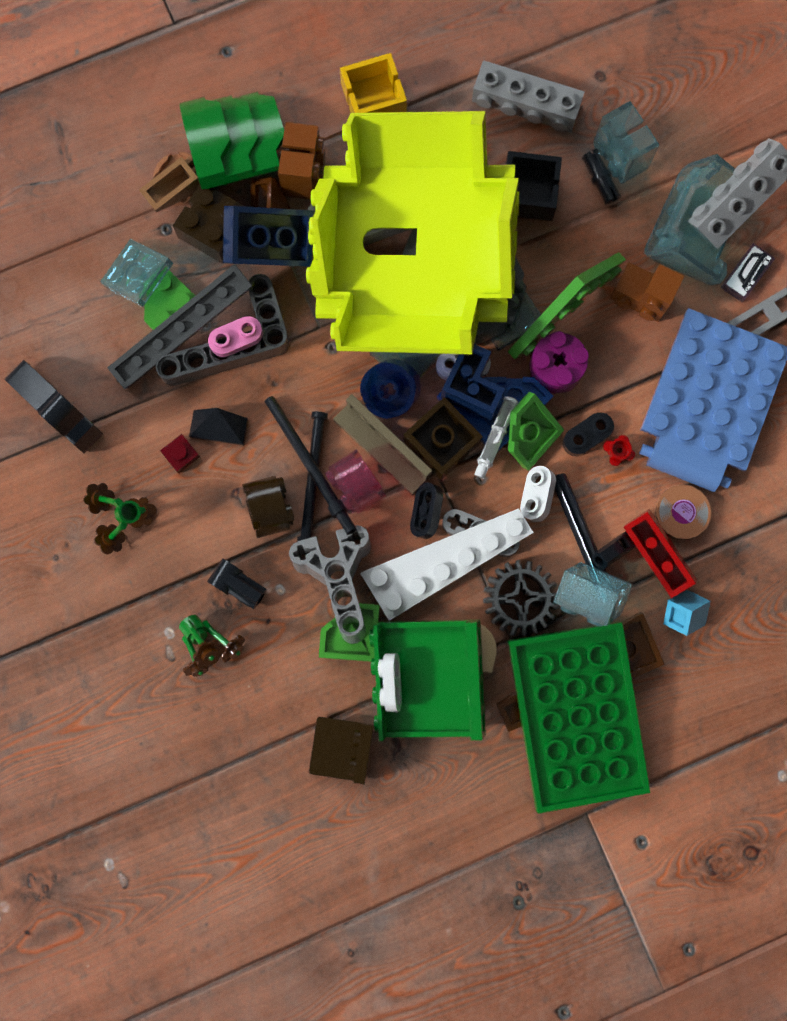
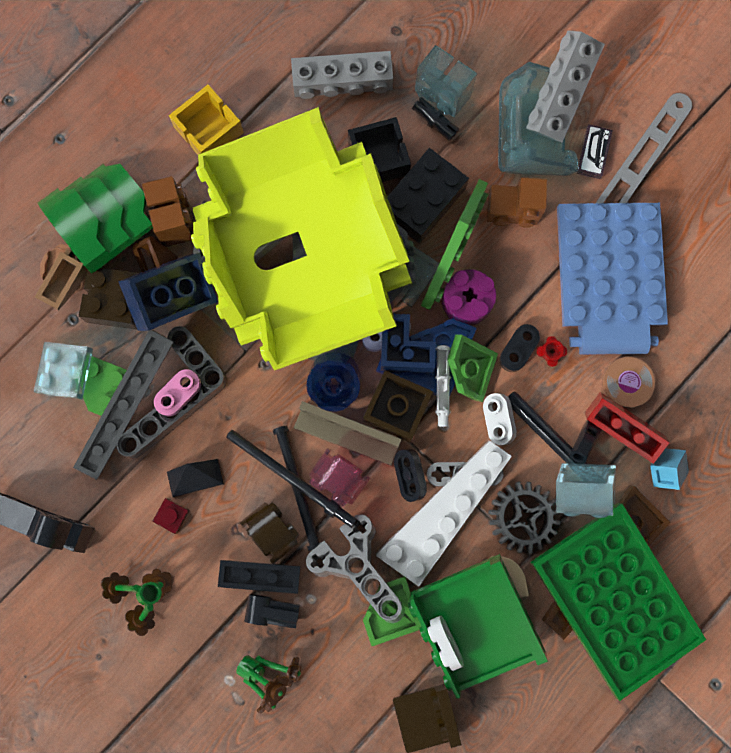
camera: 25 degrees left, 0 degrees up
(239, 545) = (259, 576): none -> black plate
(559, 246) = (426, 194): none -> black brick

